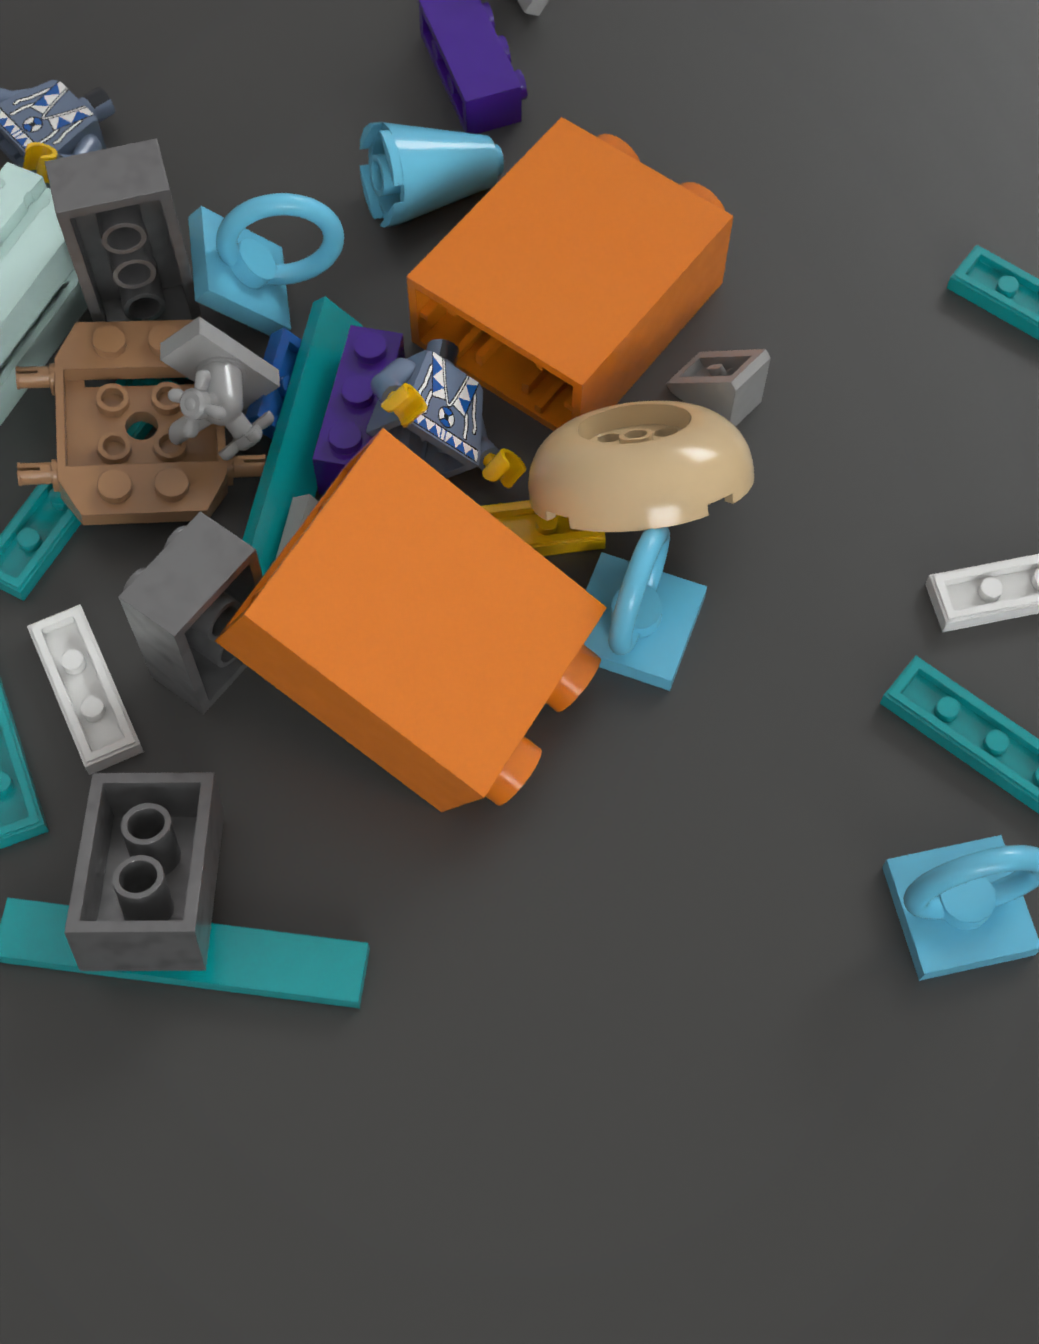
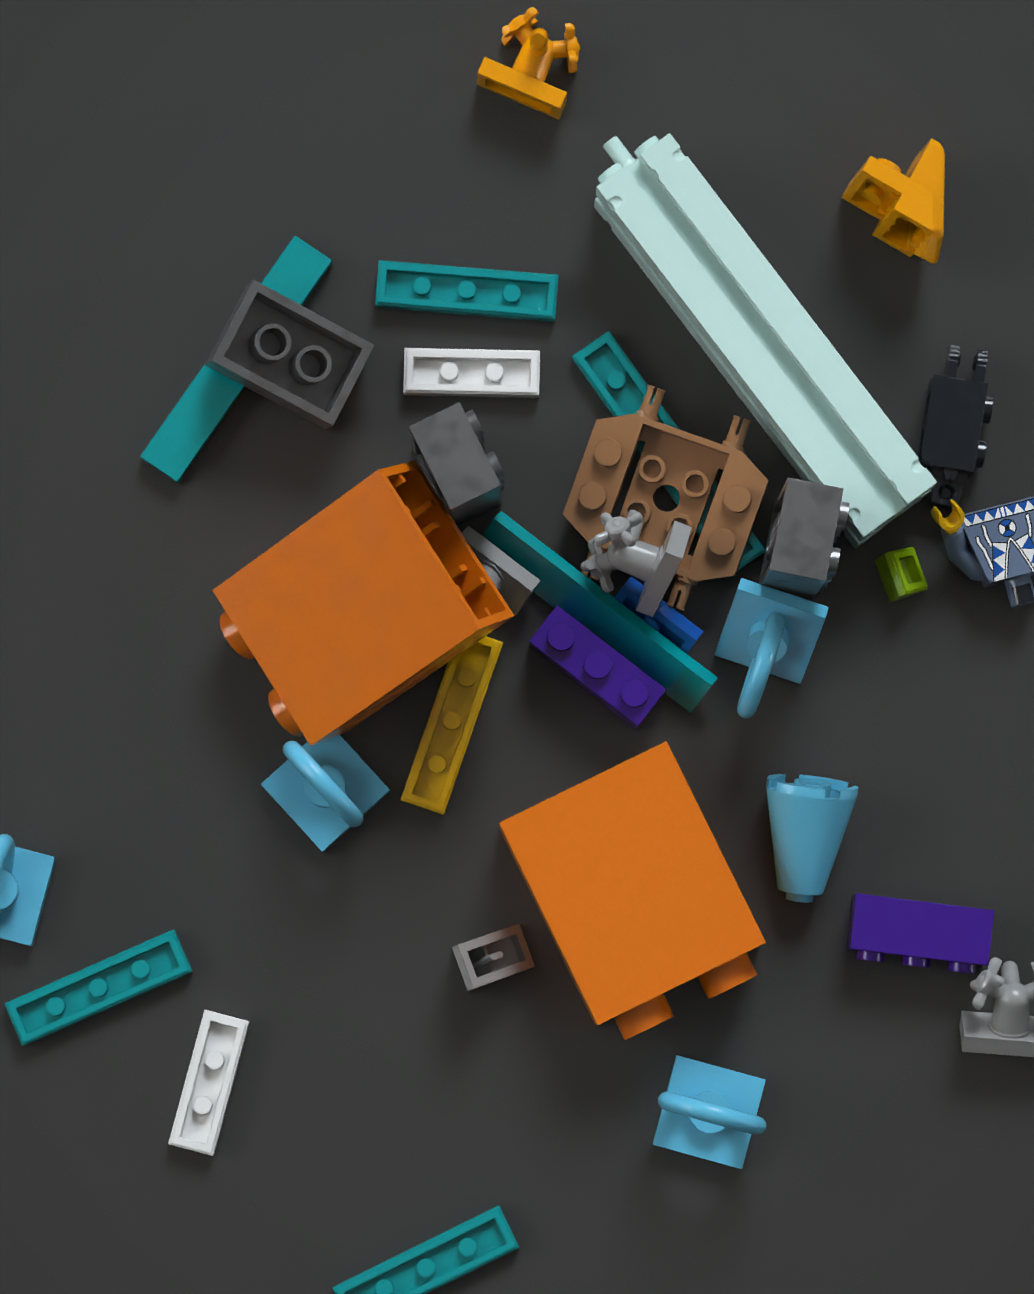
camera: 115 degrees right, 20 degrees up
(439, 415) = (553, 717): torso -> none
(639, 467) = (382, 822): tan brick -> none
(746, 151) = (709, 1112): none -> medium azure tile

